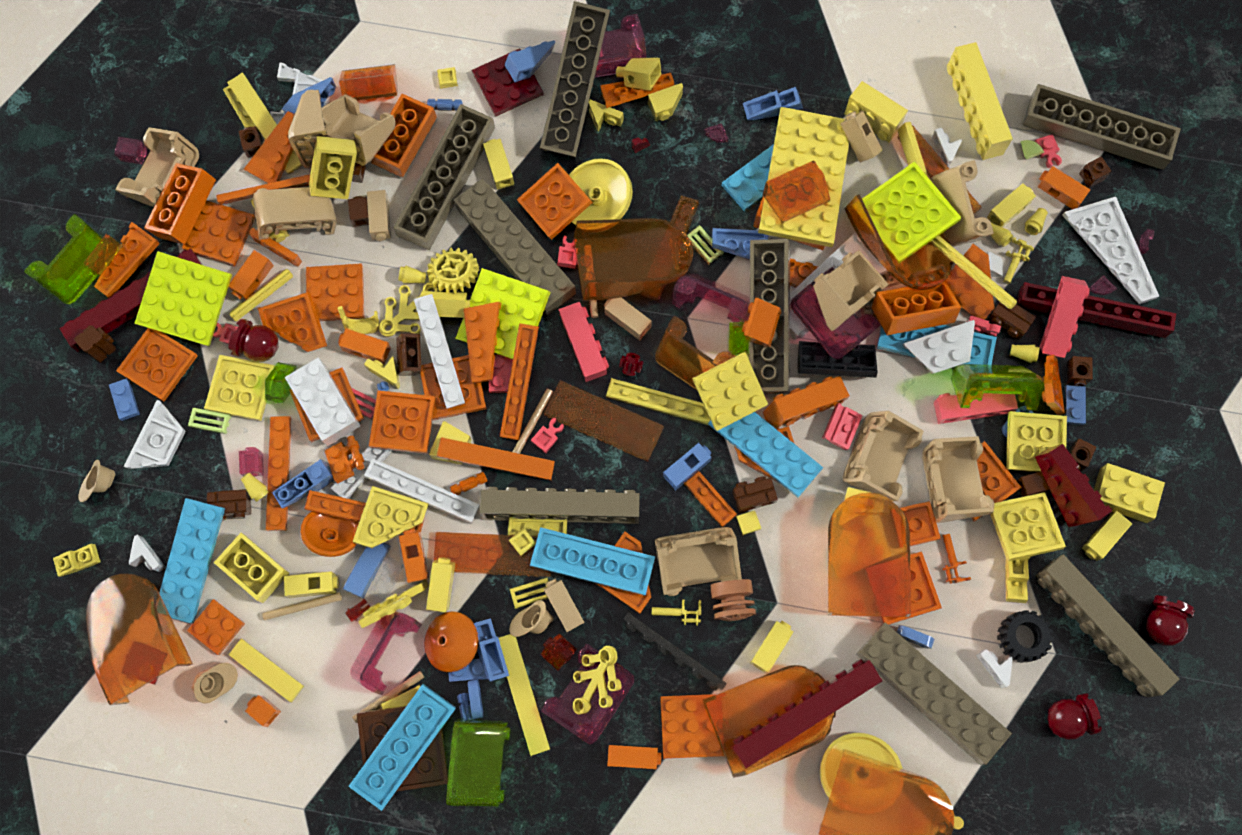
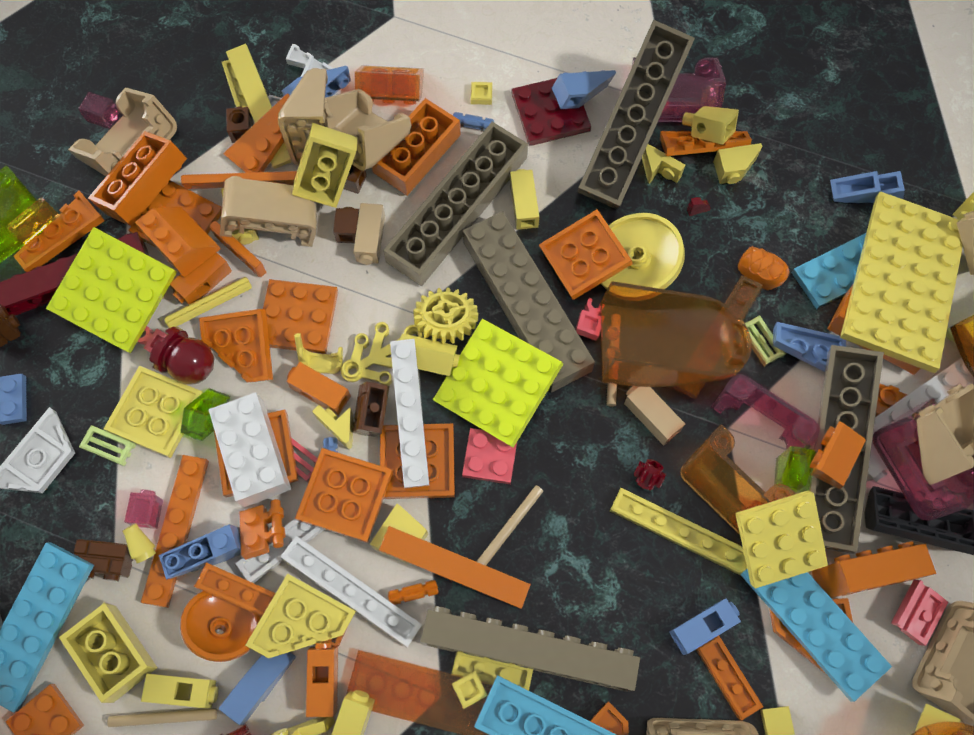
camera: 10 degrees right, 5 degrees down
(157, 363) = (62, 362): orange plate -> none
(226, 247) = (177, 238): none -> orange slope
(385, 578) = (279, 701): clear plate -> none
(411, 275) = (393, 312): light yellow cone -> none
(481, 333) = (466, 402): orange wing -> none
(519, 381) = (503, 471): orange tile -> none
(545, 437) = (524, 550): coral plate -> none
(583, 342) = (592, 434): coral brick -> none
(604, 420) = (603, 542): clear orange plate -> none
(697, 186) = (763, 267): none -> orange piece
(717, 133) = (793, 210): clear pink tile -> none
(754, 494) = (791, 685): reddish brown brick -> none
(797, 191) = (899, 294): clear orange slope -> none

